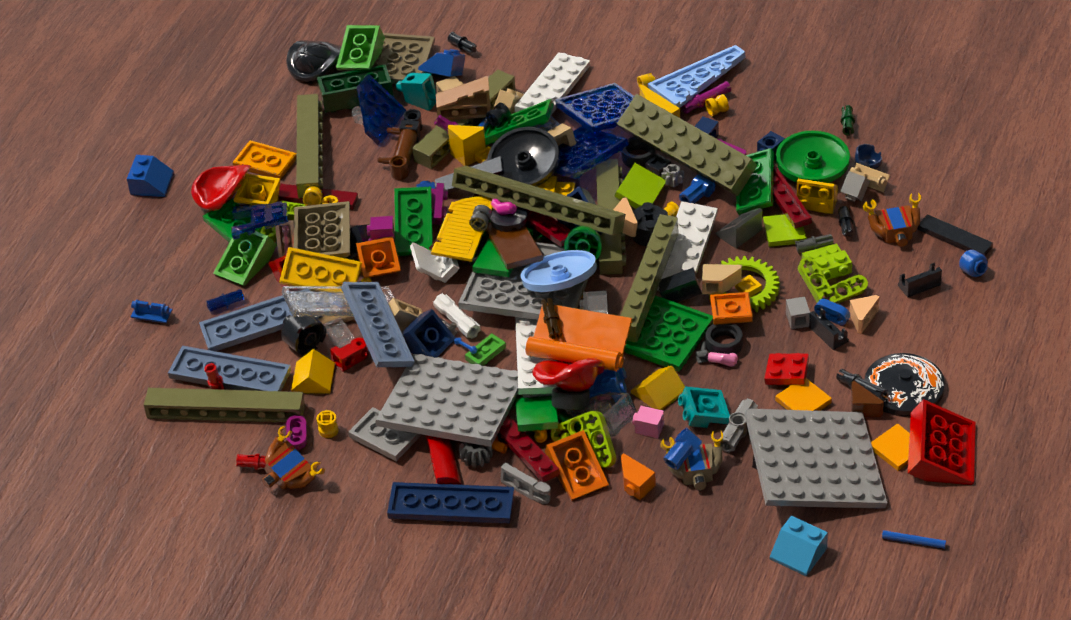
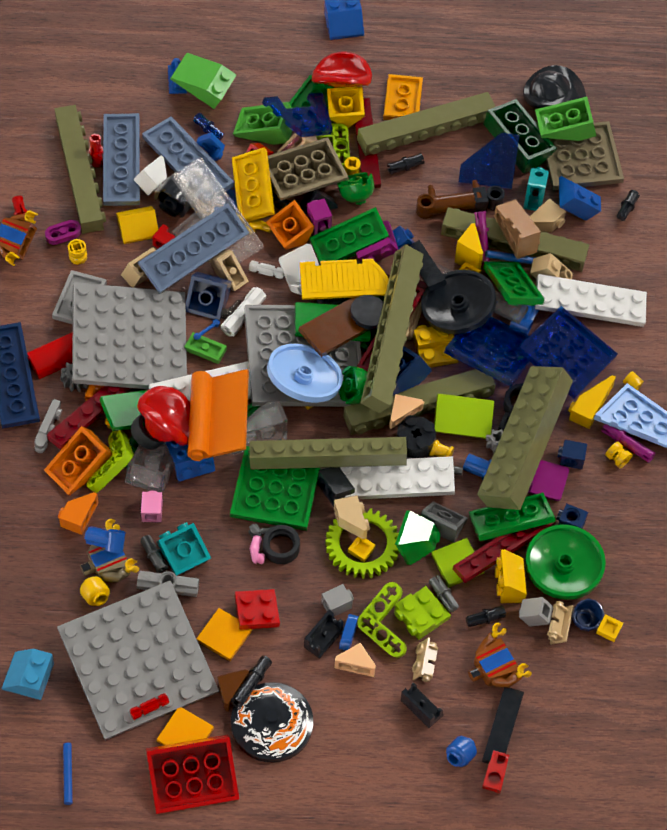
camera: 65 degrees right, 15 degrees up
(172, 284) = (203, 78): none -> bright green slope
(253, 296) = (211, 145): none -> blue bracket
(266, 347) = (152, 176): none -> white slope
(309, 198) = (352, 148): yellow wheel -> none
(343, 171) = (405, 163): none -> black pin
(361, 203) = (357, 188): none -> green cylinder
(374, 379) = (133, 273): none -> tan slope
(415, 291) = (266, 269): none -> white axle
(480, 218) = (347, 287): dark grey wheel -> none
(496, 116) = (515, 262): black wheel -> none
(503, 208) = (372, 301): dark pink arm -> none
(551, 318) = (228, 381): dark brown pin -> none
(563, 134) = (507, 323): tan panel -> none
(660, 388) = (200, 505): yellow slope -> none
(704, 430) = (153, 554): none -> dark grey axle
(727, 480) = (94, 591): none -> yellow head
(731, 308) = (316, 538): orange tile -> none
(754, 242) = (416, 537): none -> green slope
(847, 120) = (643, 583): dark green pin -> none
(868, 457) = (149, 706): none -> red axle
(875, 270) = (425, 652): none -> tan hinge
(886, 148) = (609, 628): none -> yellow plate
(1001, 243) = (496, 772): none -> red leg

